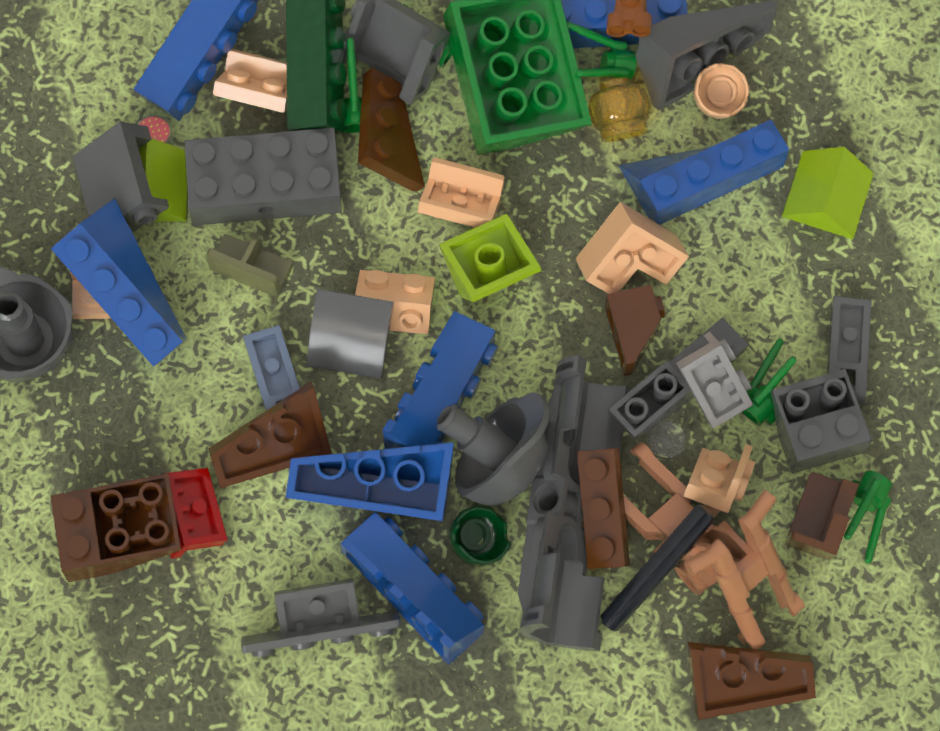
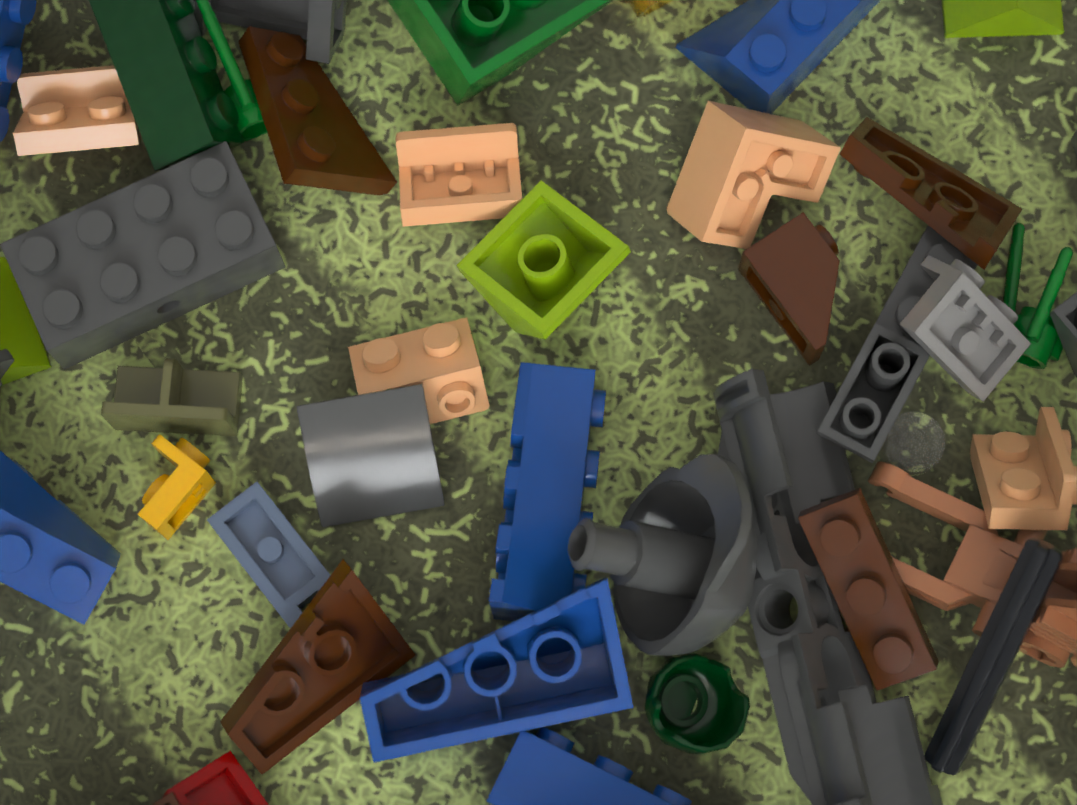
camera: 15 degrees left, 5 degrees up
(232, 316) = (175, 496): none -> yellow bracket
(734, 301) = (938, 194): none -> reddish brown wing

